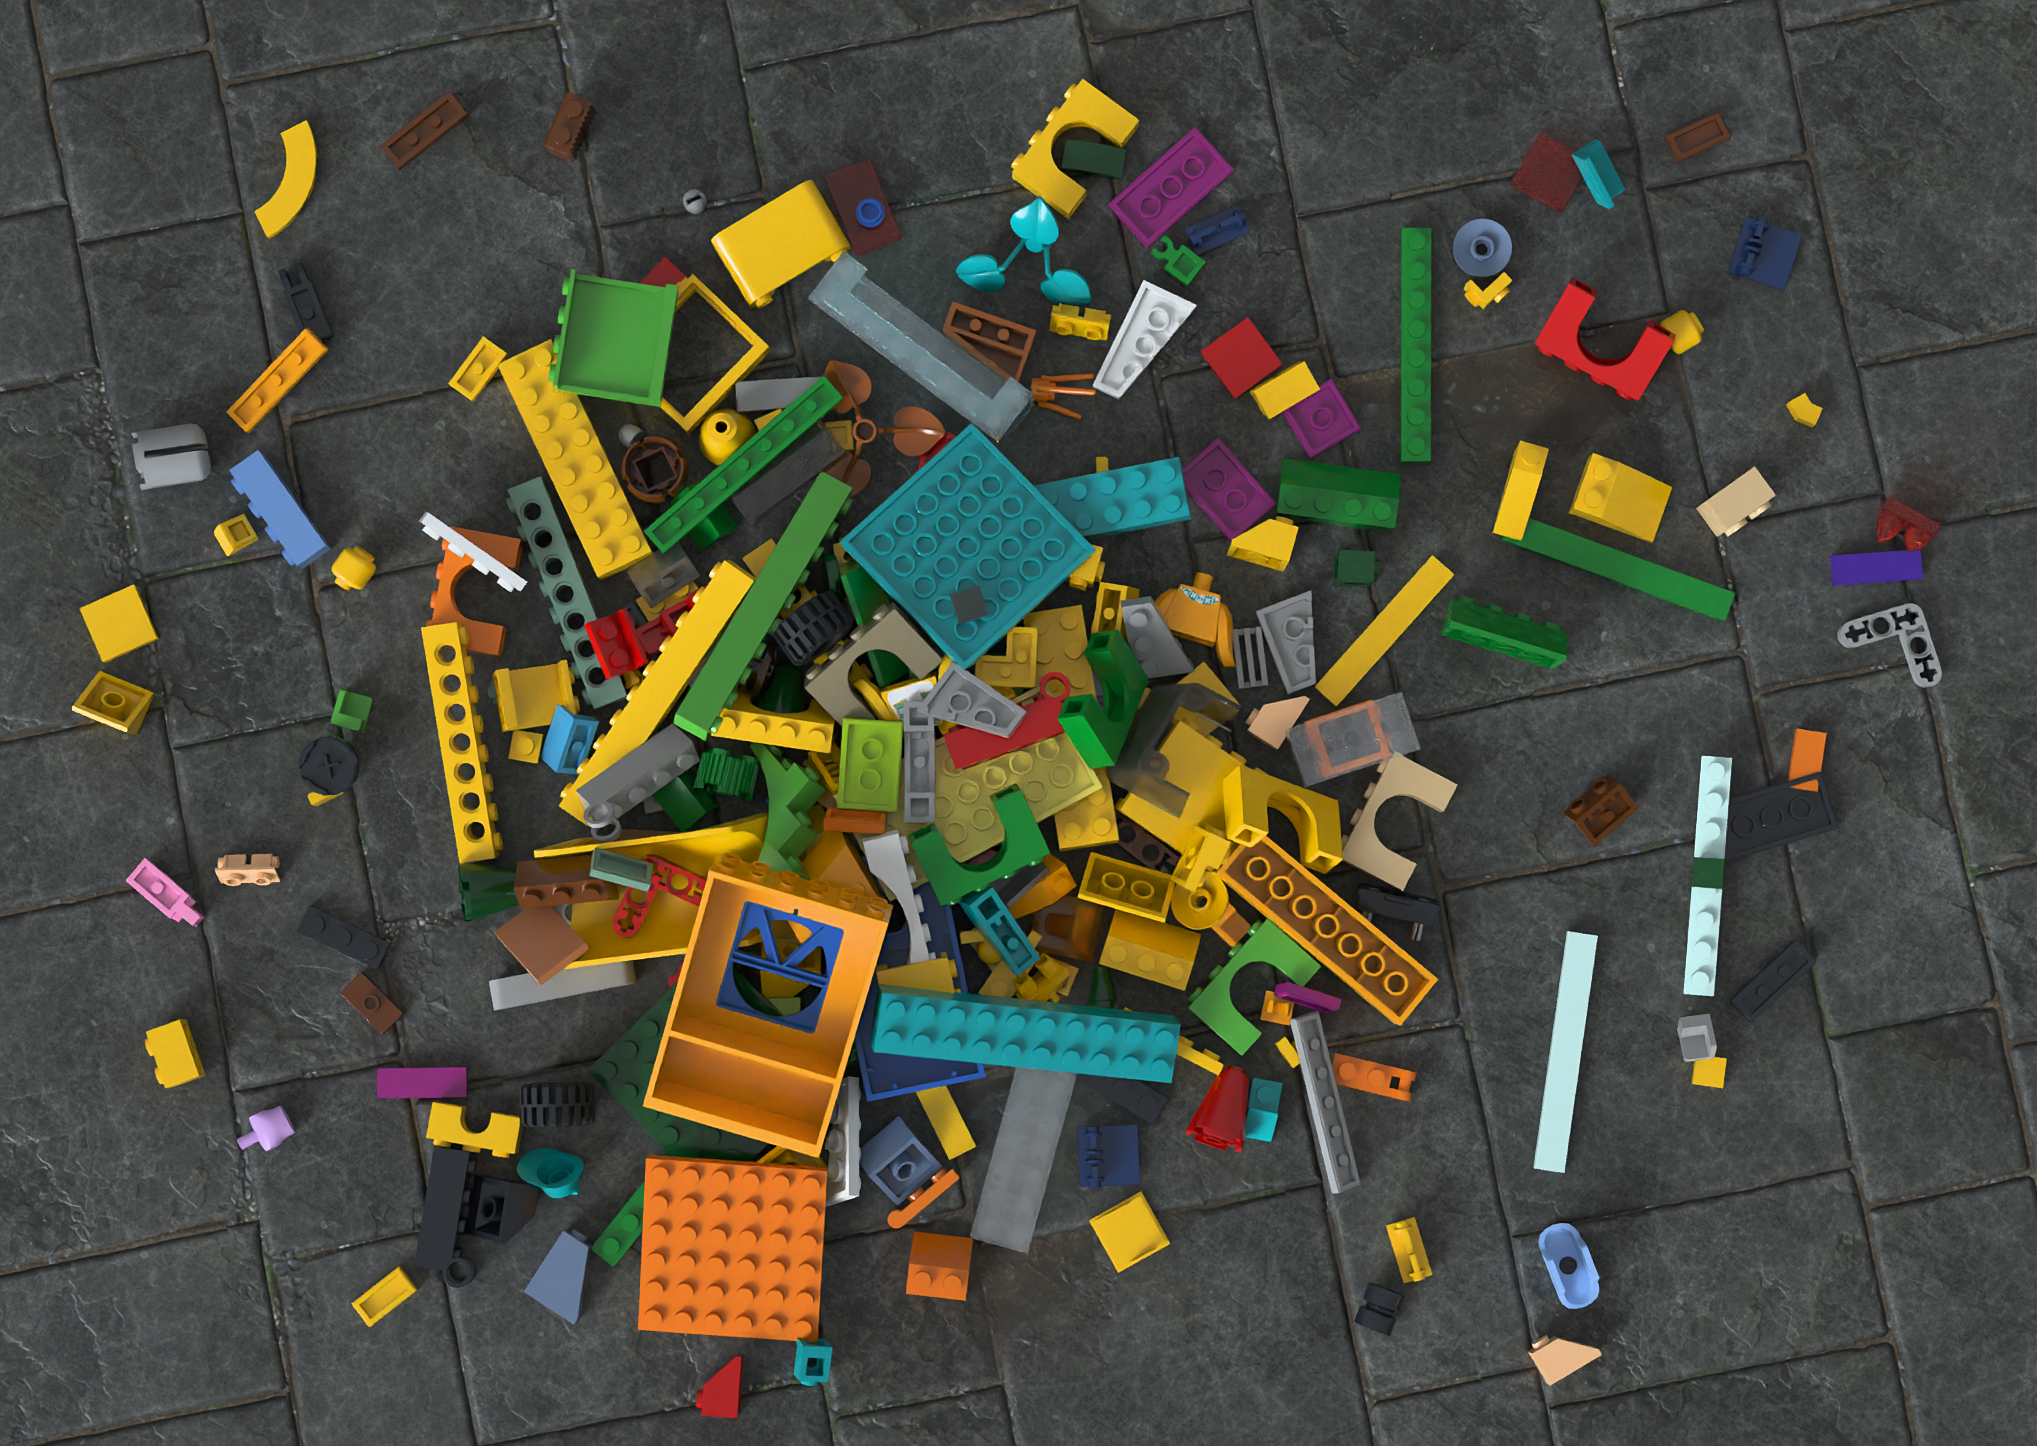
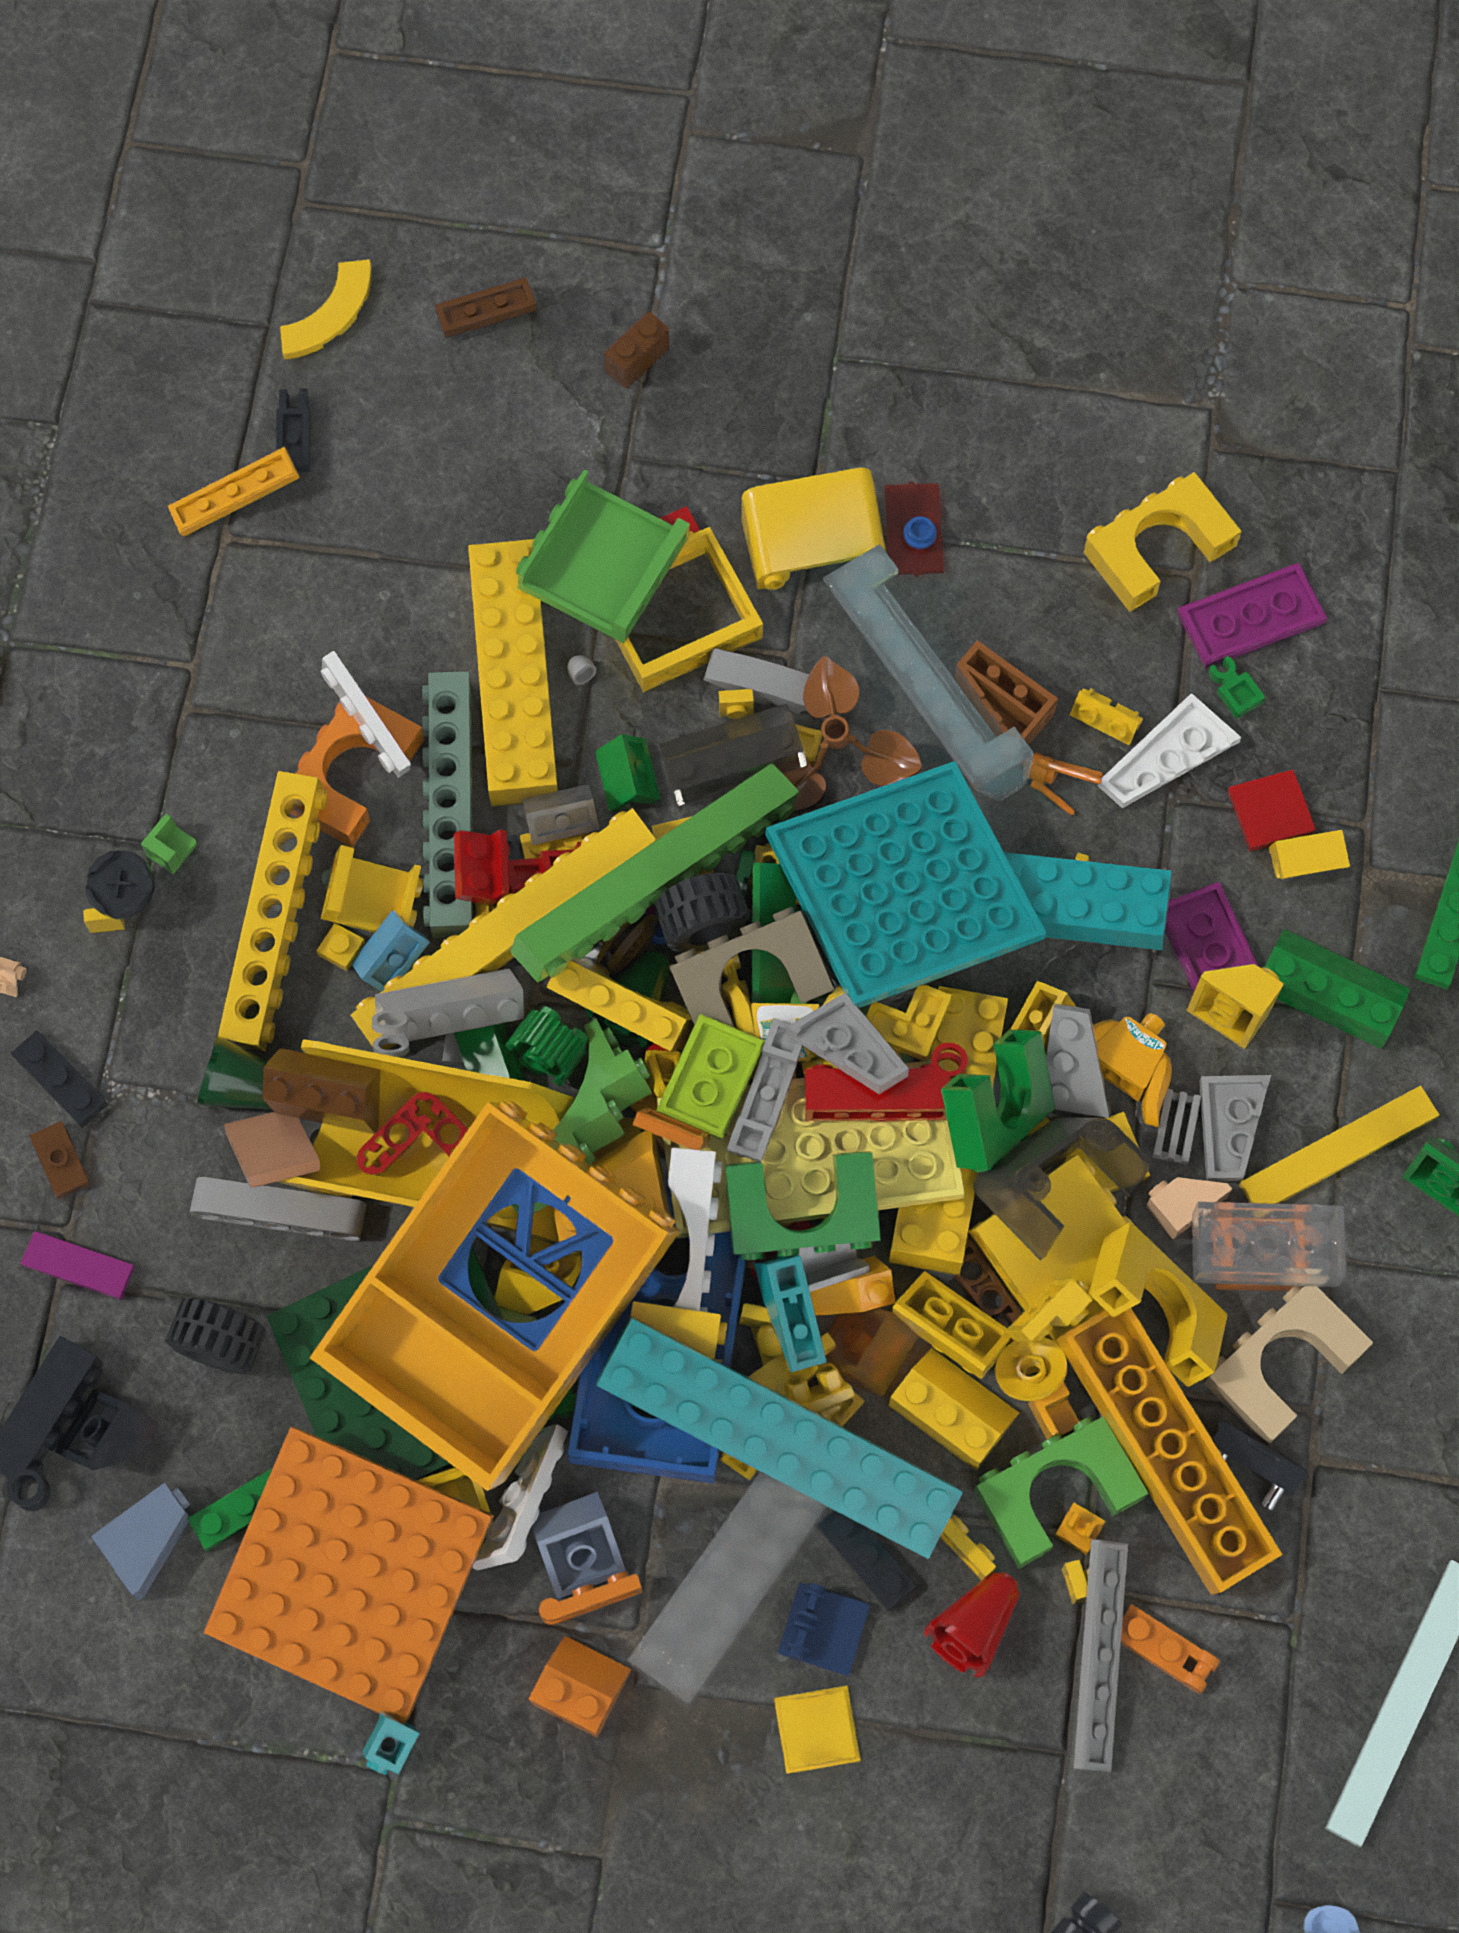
camera: 15 degrees right, 15 degrees down
(171, 455) = (91, 524): light grey cylinder -> none
(235, 534) = (124, 629): yellow slope -> none
(279, 509) = (181, 618): medium blue brick -> none
(353, 568) = (233, 700): yellow head -> none
(449, 1126) = (86, 1321): yellow arch -> none
(478, 369) = (445, 550): yellow plate -> none
(552, 1171) = (180, 1414): teal piece -> none
(621, 869) = (390, 1089): sand green tile -> none
(643, 452) = (593, 687): reddish brown piece -> none
(697, 206) = (738, 468): light grey hinge -> none
(718, 445) = (682, 700): yellow cone -> none
(723, 1391) = (273, 1739): red slope -> none
(743, 465) = (690, 729): green plate -> none
(946, 1121) = (650, 1520): yellow tile -> none
(969, 605) = (884, 938): clear smoke tile -> none
(1037, 230) = (1099, 587): teal plant -> none
(1088, 572) = (1025, 965): yellow brick -> none
(1092, 158) = (1176, 556): dark green slope -> none
(1102, 989) = (885, 1428): dark green cone -> none
(1217, 230) = (1289, 672): dark blue hinge -> none
(1262, 1109) = (1023, 1640): teal slope -> none
(1307, 997) = (1119, 1524): magenta tile -> none
(1321, 419) = (1339, 902): magenta tile -> none
(1355, 568) = (1330, 1065): dark green brick -> none
(1409, 1250) = (1143, 1872): yellow hinge -> none

